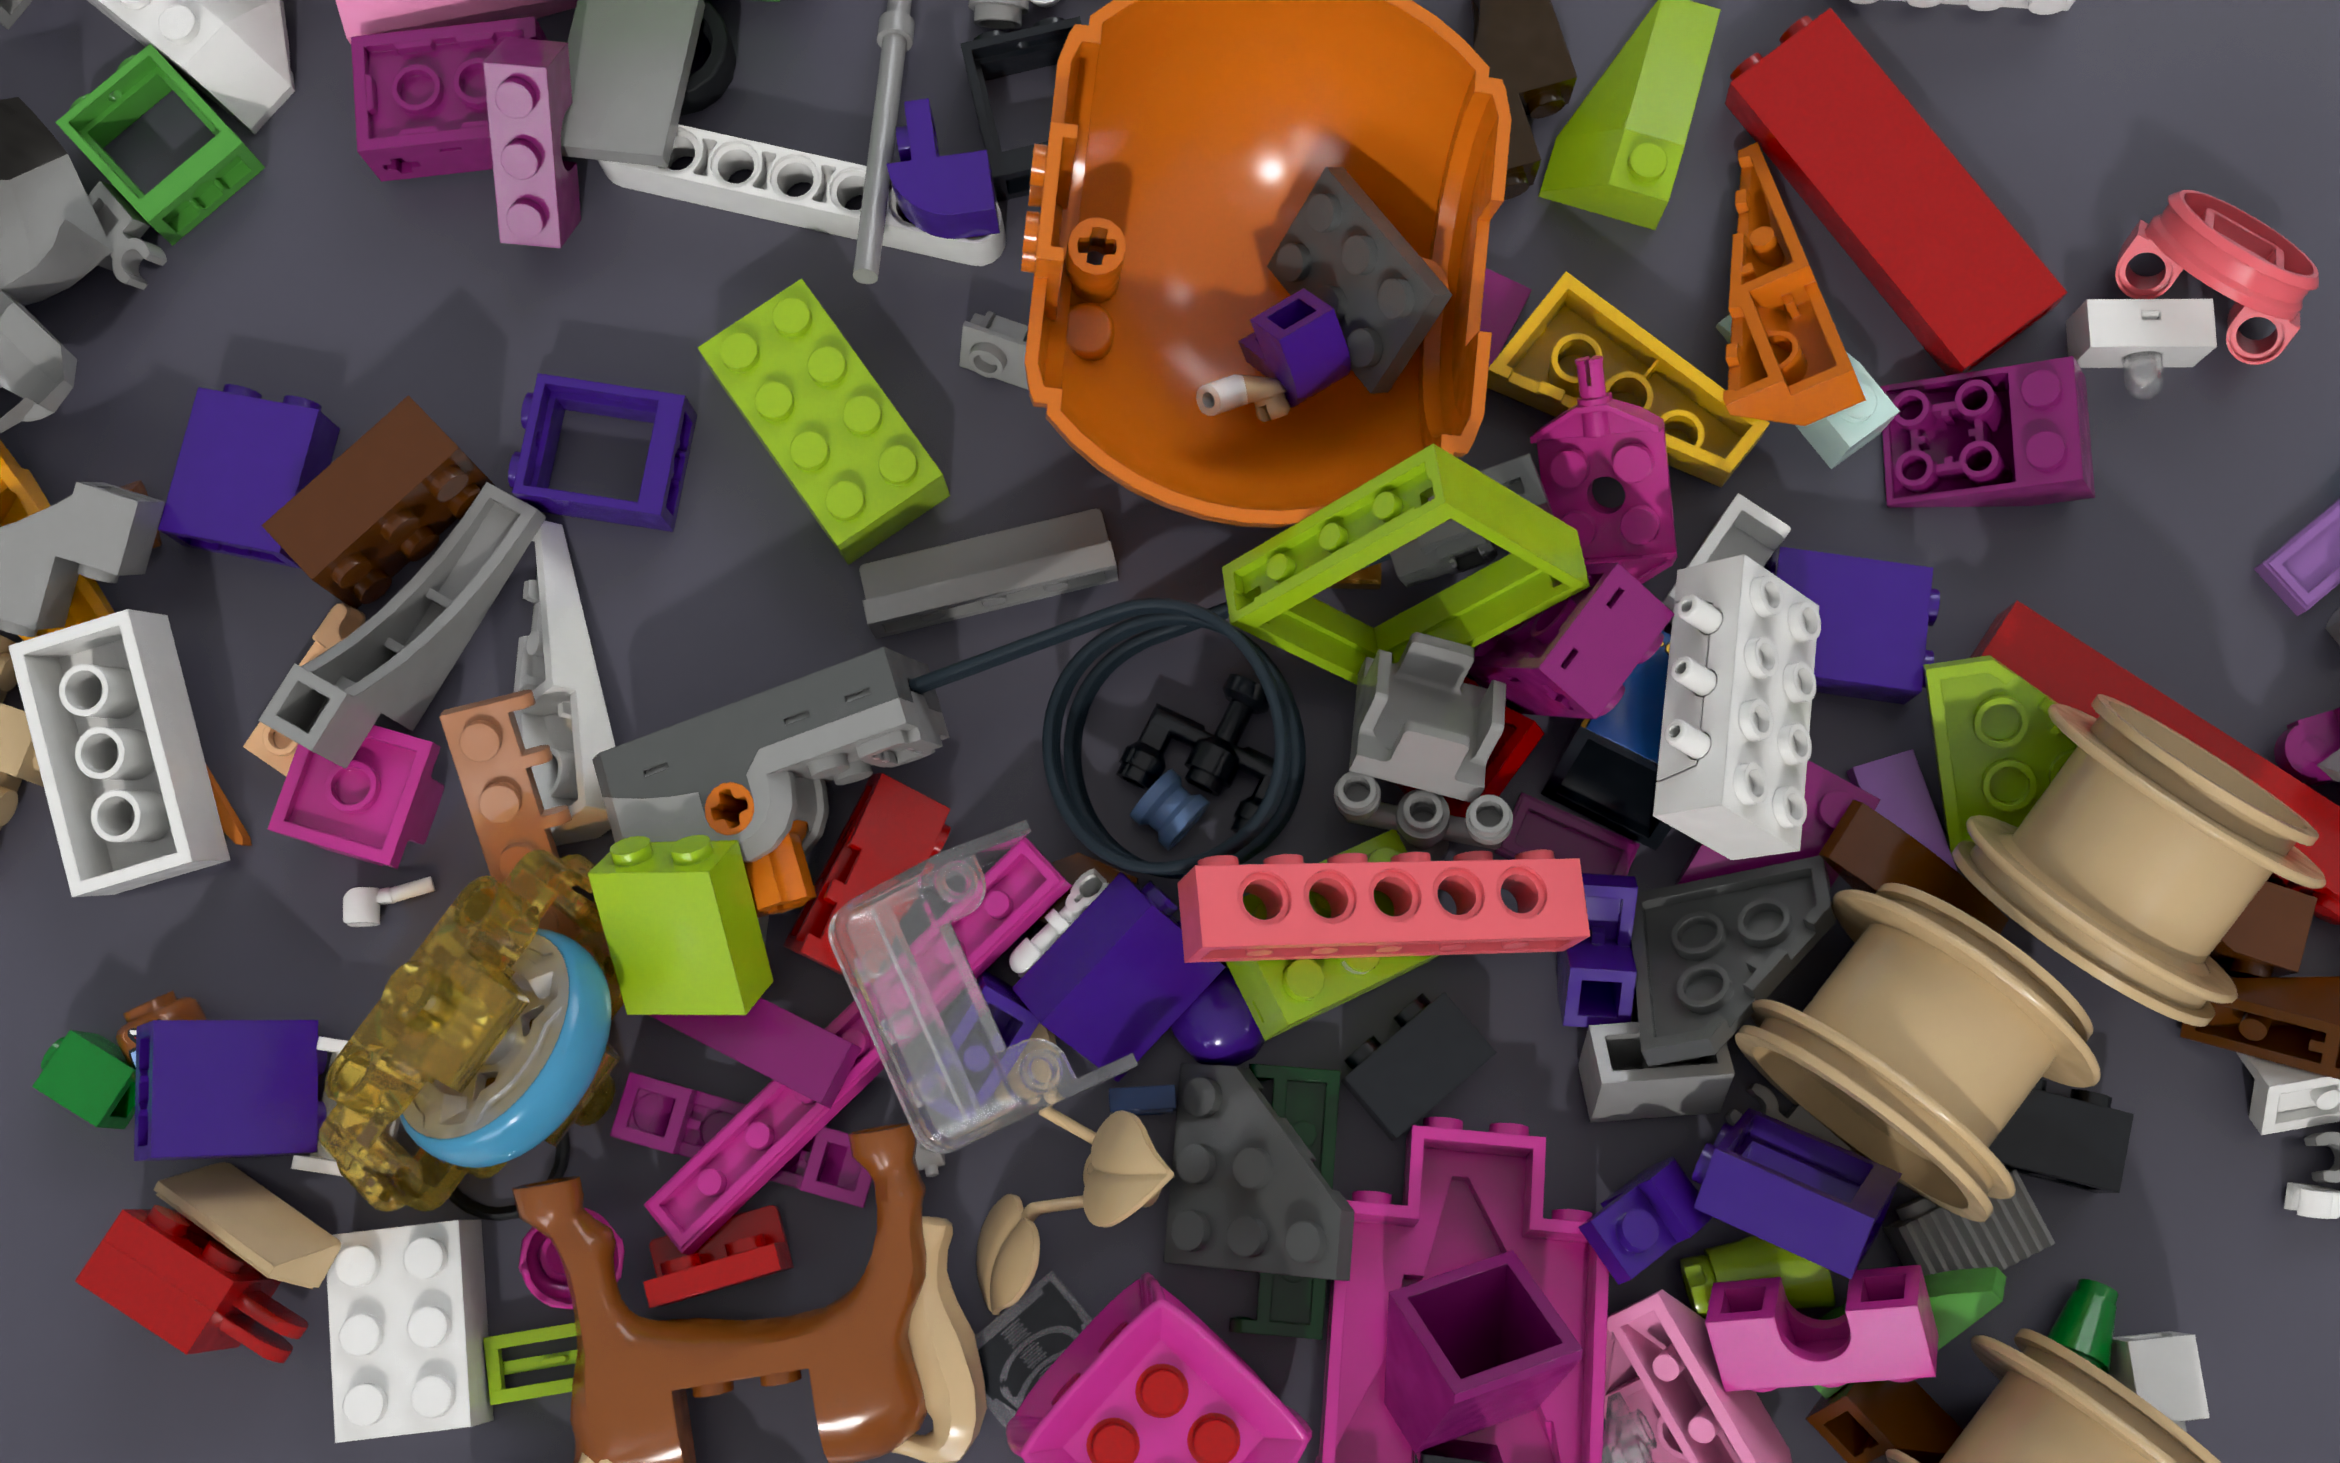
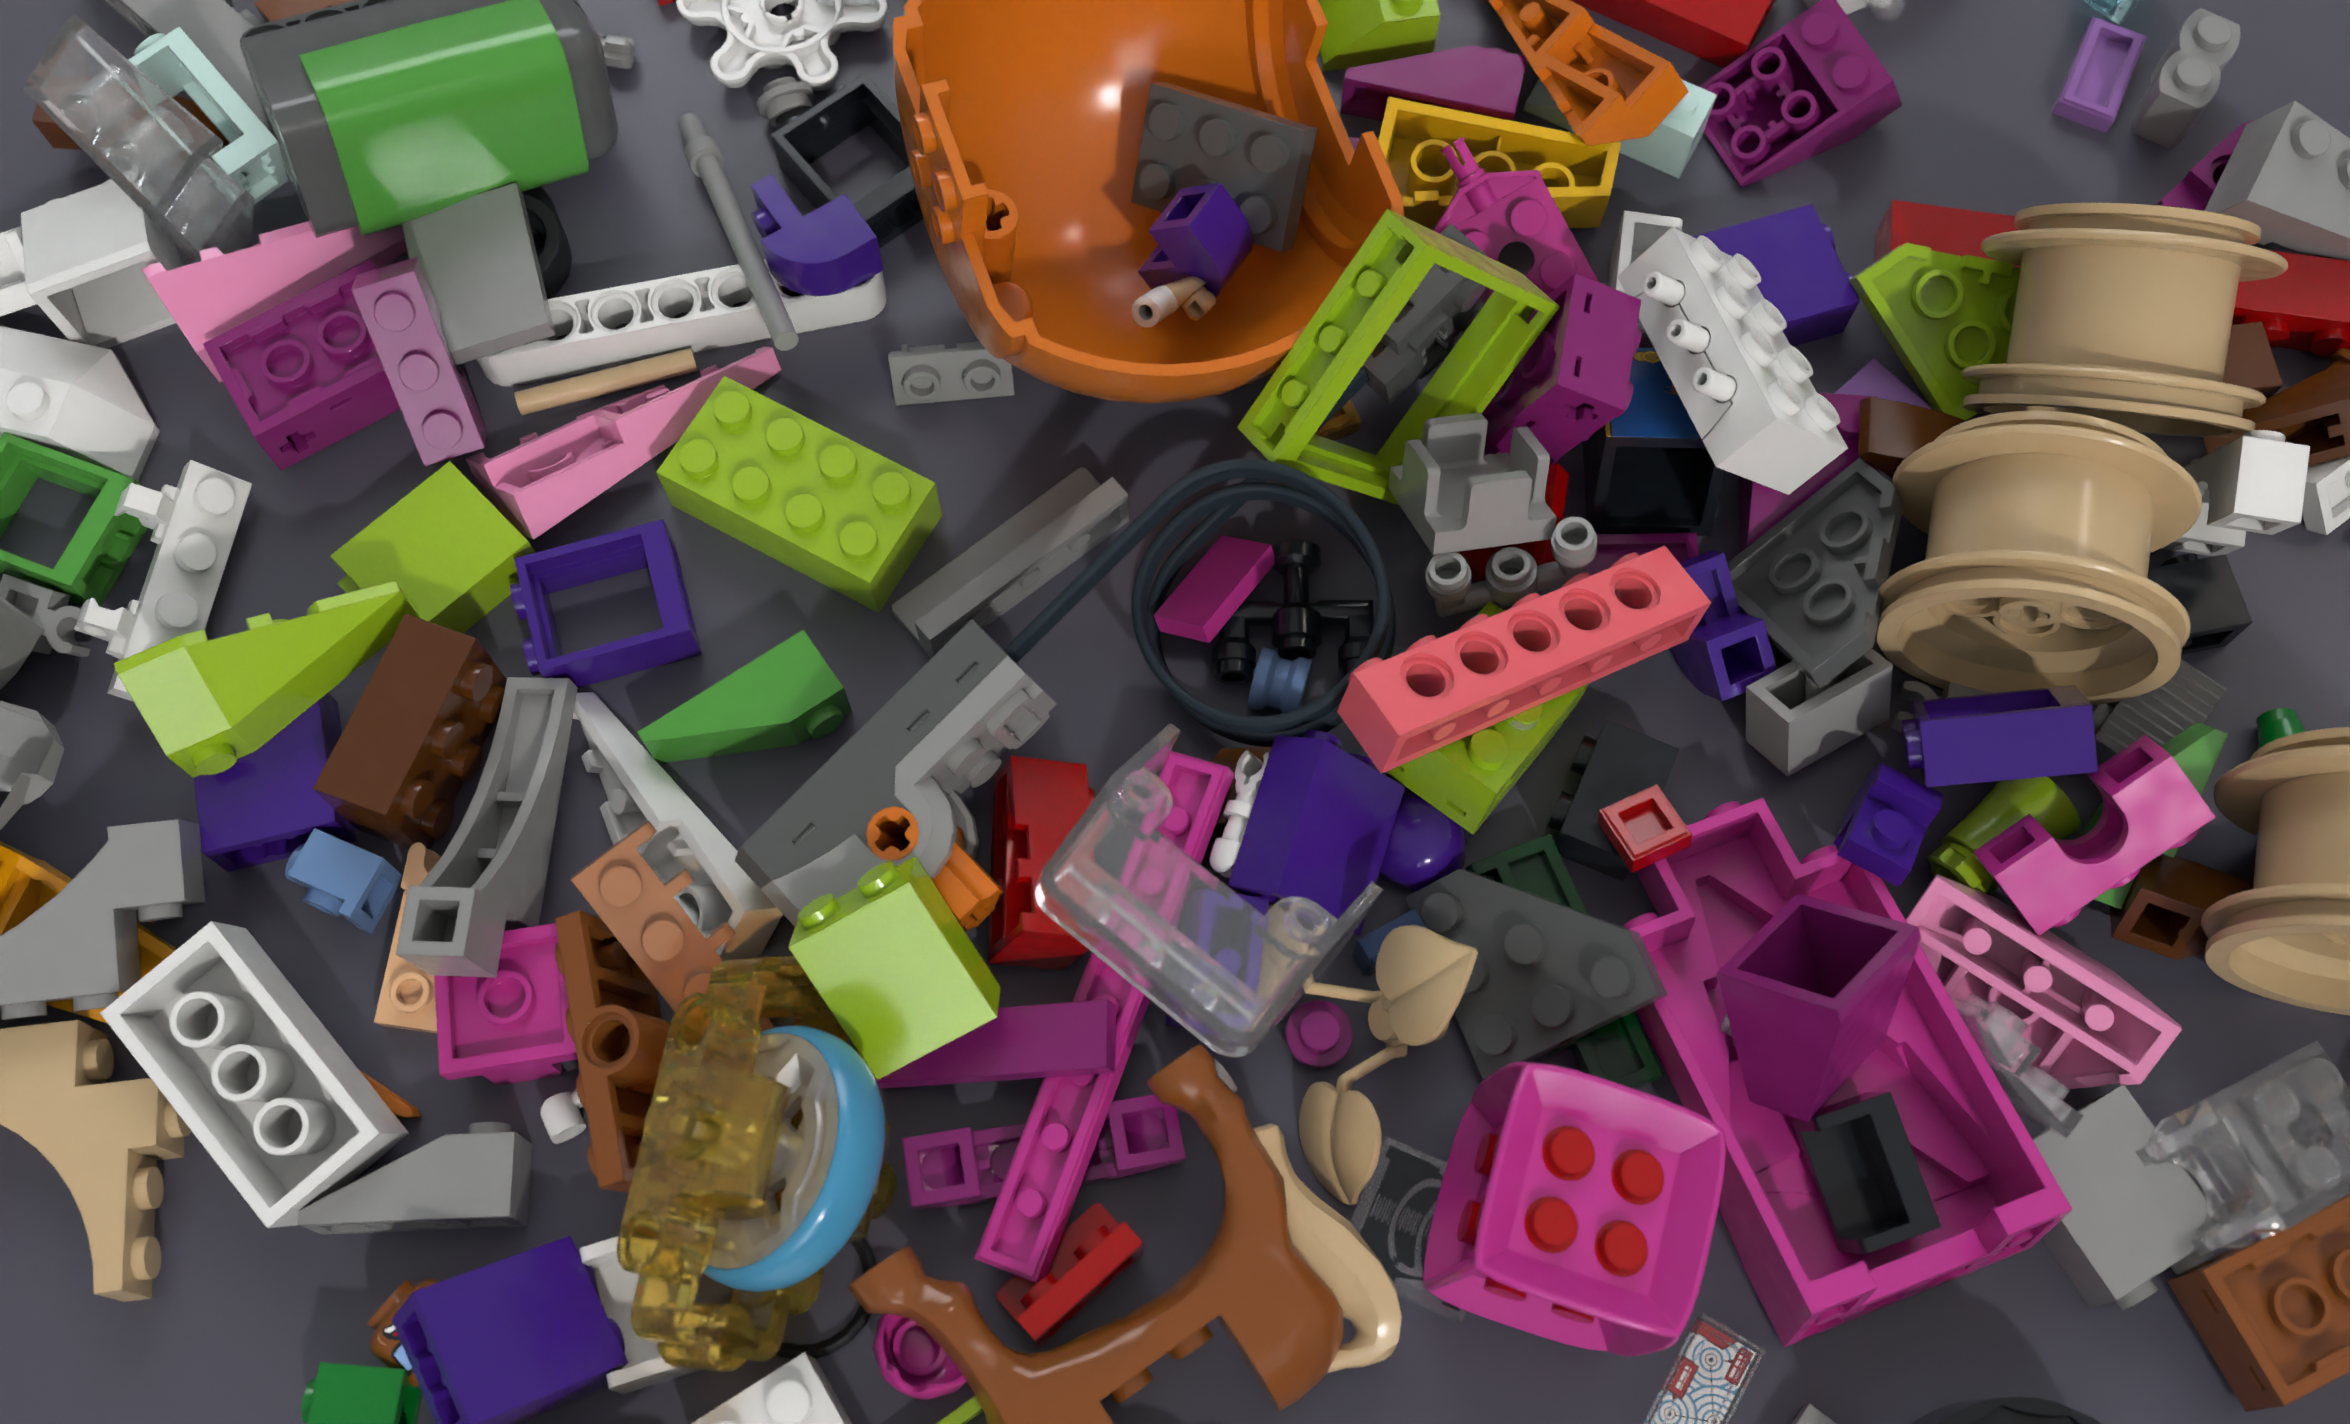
camera: 30 degrees left, 10 degrees down
(234, 405) = (240, 690): none -> lime wedge
(240, 922) = (441, 1186): none -> light grey slope
(270, 605) = (343, 879): none -> medium blue brick
(274, 221) = (193, 541): none -> white hinge
(424, 868) = (617, 1042): none -> dark orange plate
(472, 337) = (441, 548): none -> lime brick
(653, 293) = (580, 460): none -> bright pink wedge
(706, 223) = (606, 381): none -> tan bar
(709, 611) = (758, 707): none -> bright green slope
(1040, 1150) = (1319, 1034): none -> magenta plate
(1155, 691) = (1215, 588): none -> dark pink tile
(1418, 1114) = (1644, 828): none -> red tile
(1646, 279) = (1455, 78): none -> magenta slope
(2167, 1067) = (2243, 488): none -> white arch

